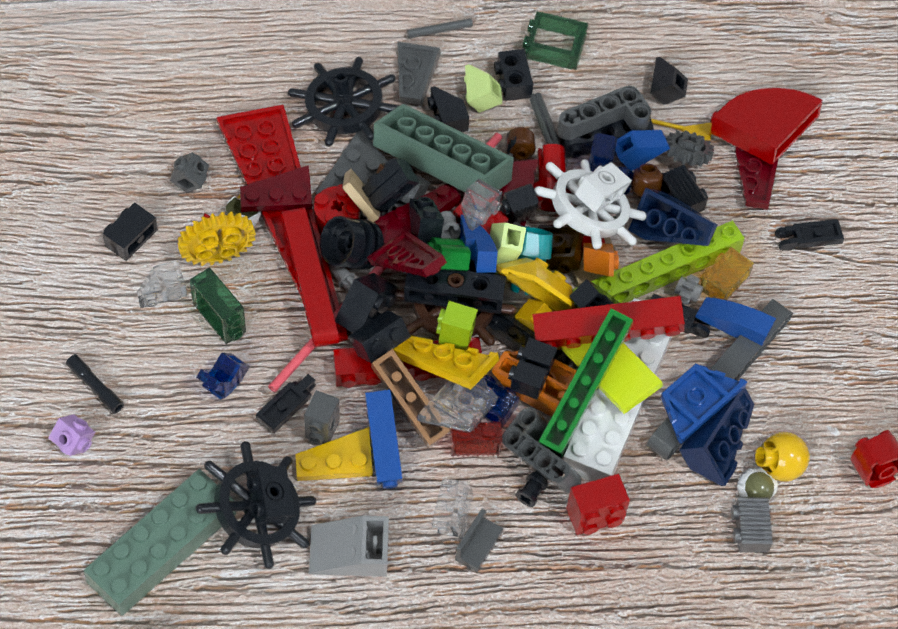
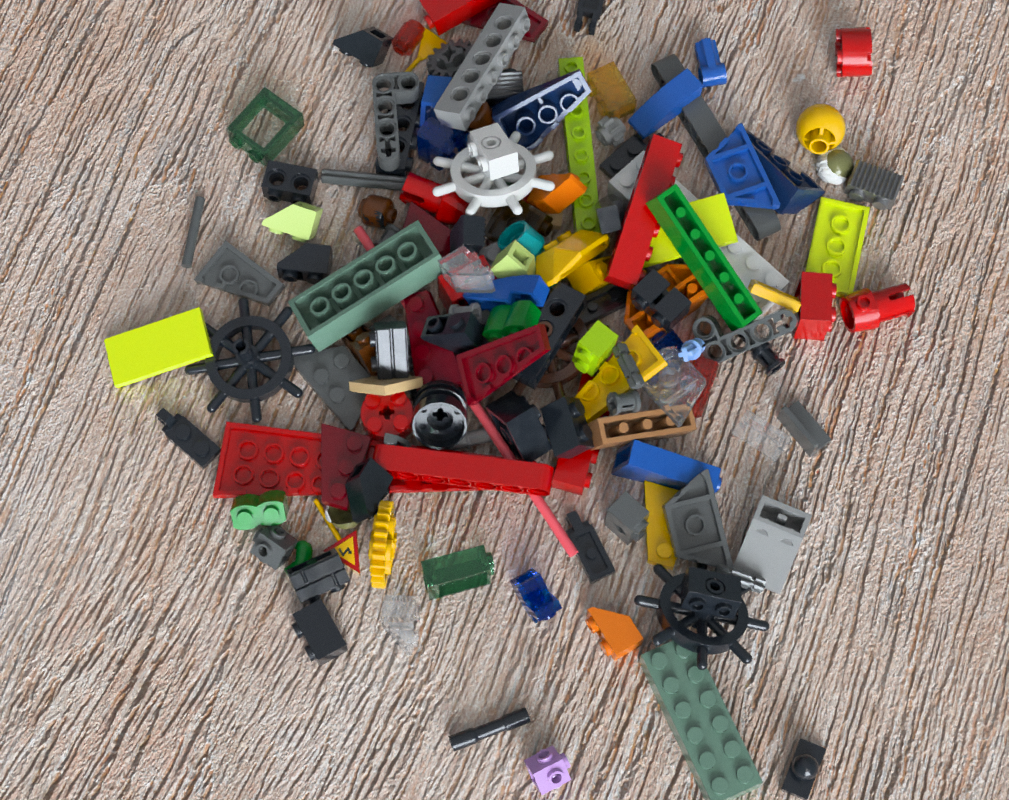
camera: 65 degrees left, 10 degrees up
(174, 209) = (318, 576): none -> black brick
(190, 199) = (303, 553): none -> green arm
(215, 151) = (252, 510): none -> brick
(216, 446) = (615, 630): none -> orange slope
(260, 86) = (188, 438): none -> black hinge
(264, 211) = (366, 488): none -> black slope
(305, 529) = (755, 584): none -> dark grey axle
(314, 222) = (391, 439): none -> dark grey tile
(325, 37) = (158, 347): none -> neon yellow tile
(339, 475) = (697, 524): none -> dark grey wing
(418, 366) = (623, 402): none -> dark grey bush
(452, 357) = (628, 366): none -> dark grey axle
(498, 409) = (691, 349): none -> light blue axle
(584, 458) = (774, 295): none -> yellow tile
(619, 554) = (867, 309): none -> red piece
(675, 515) = (838, 242): none -> neon yellow tile
(689, 162) = (482, 66): none -> light grey brick
(694, 110) = (408, 37): none -> clear red brick
(797, 350) = (710, 69): none -> blue piece

